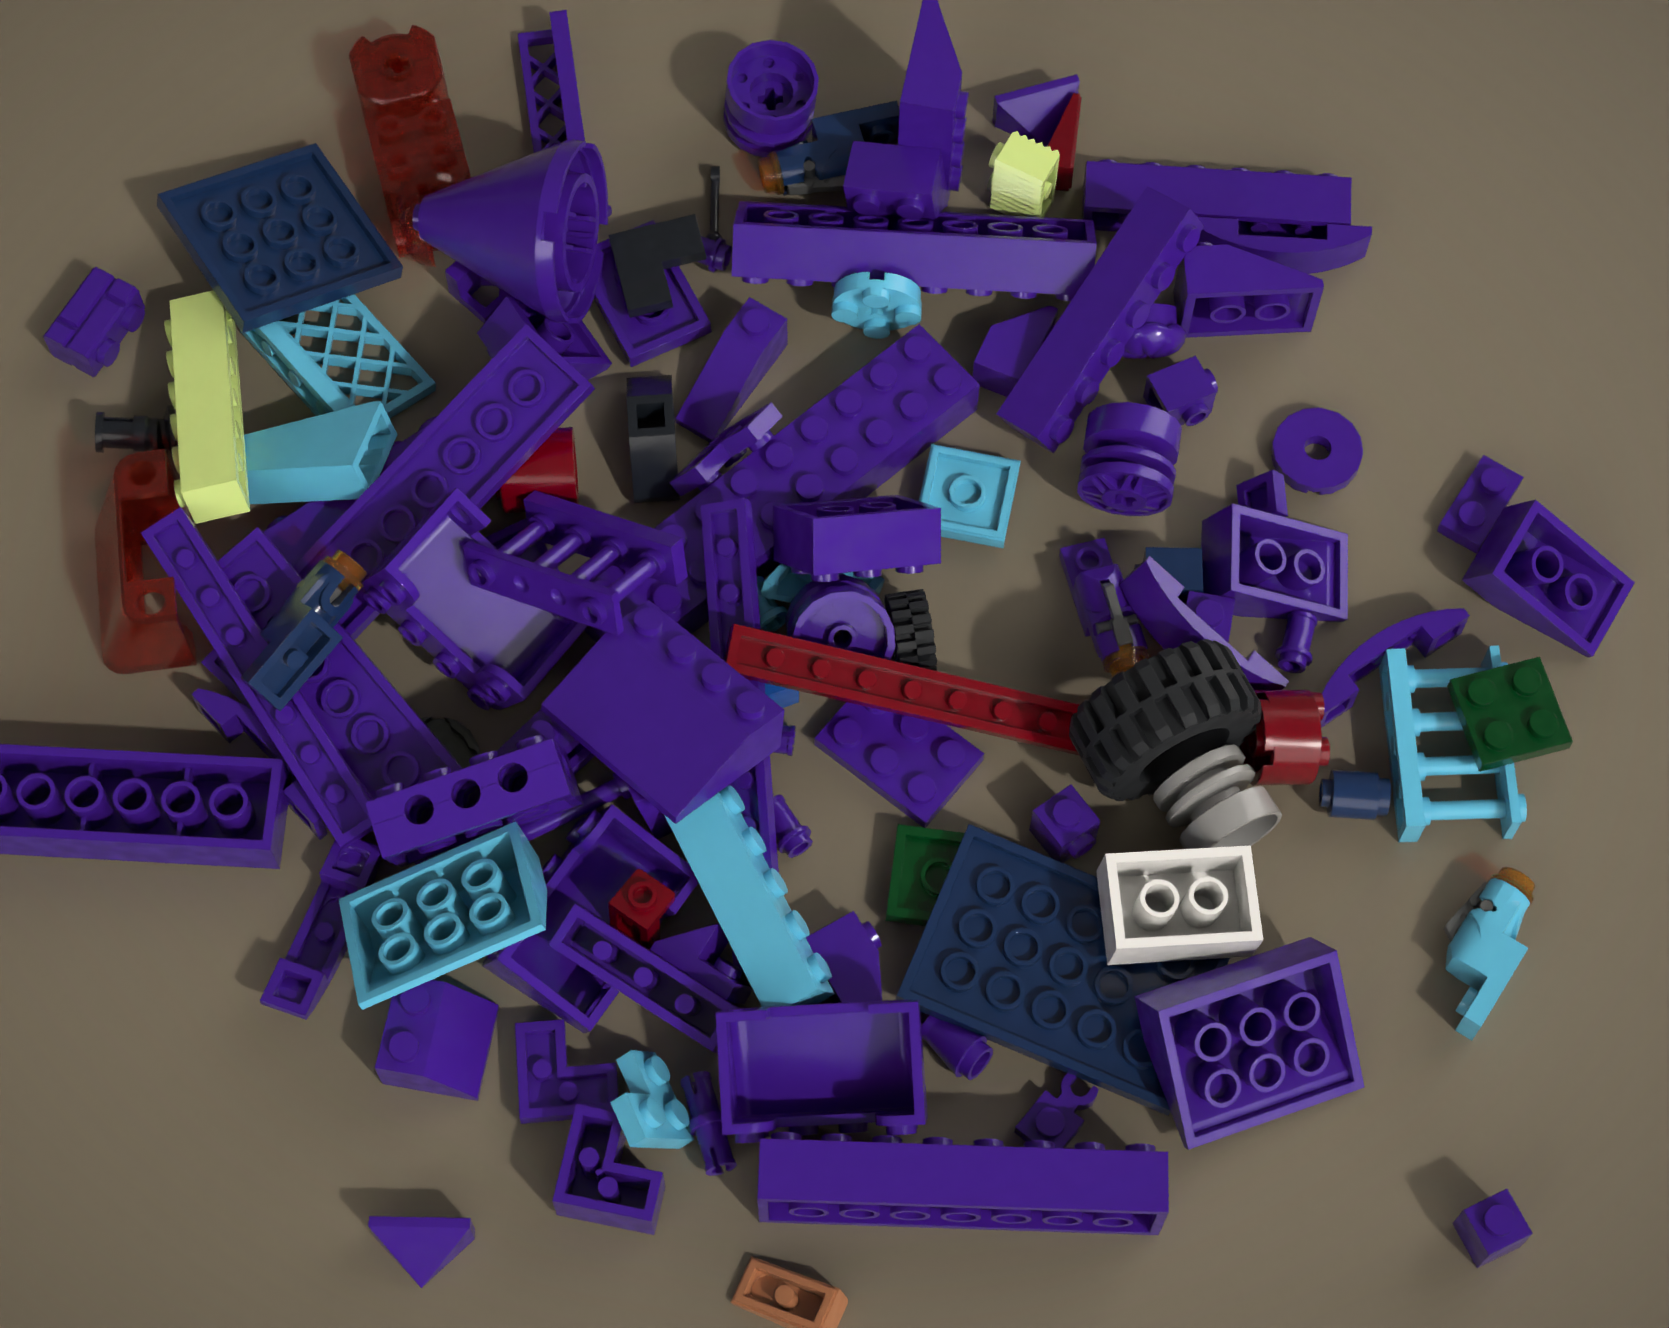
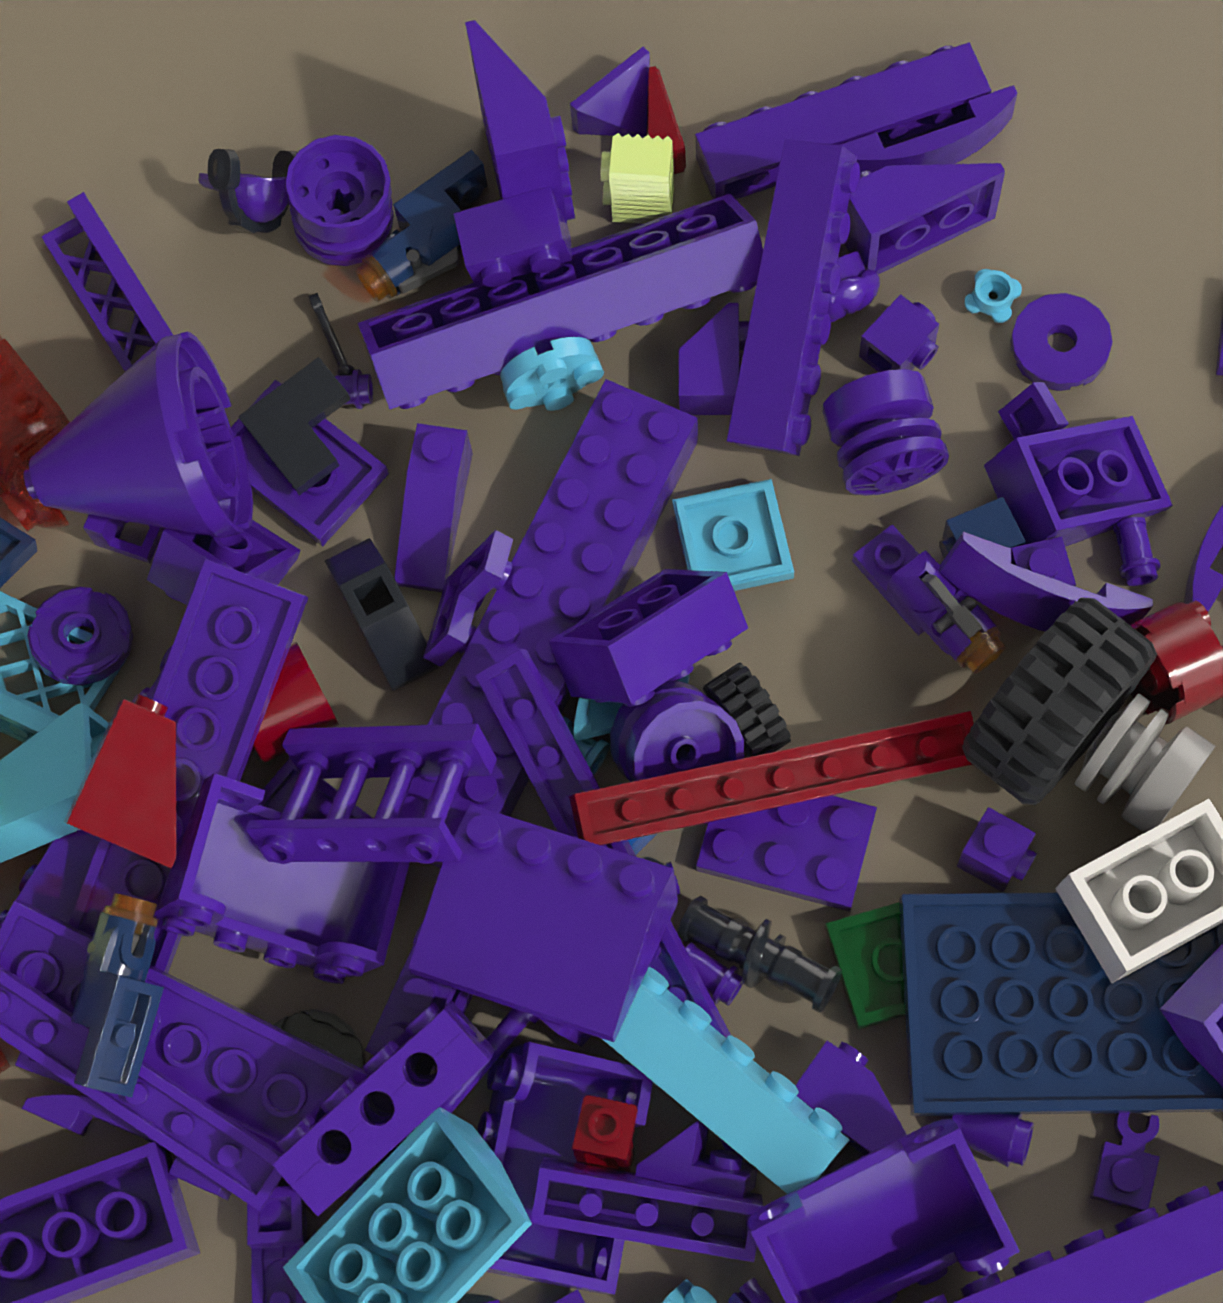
camera: 15 degrees left, 5 degrees up
(386, 469) = (132, 783): none -> dark red slope
(400, 377) = (87, 661): none -> dark purple tile
(694, 69) = (249, 200): none -> cap
(831, 825) = (758, 954): none -> black piece
(1277, 379) = (997, 282): none -> medium azure plate

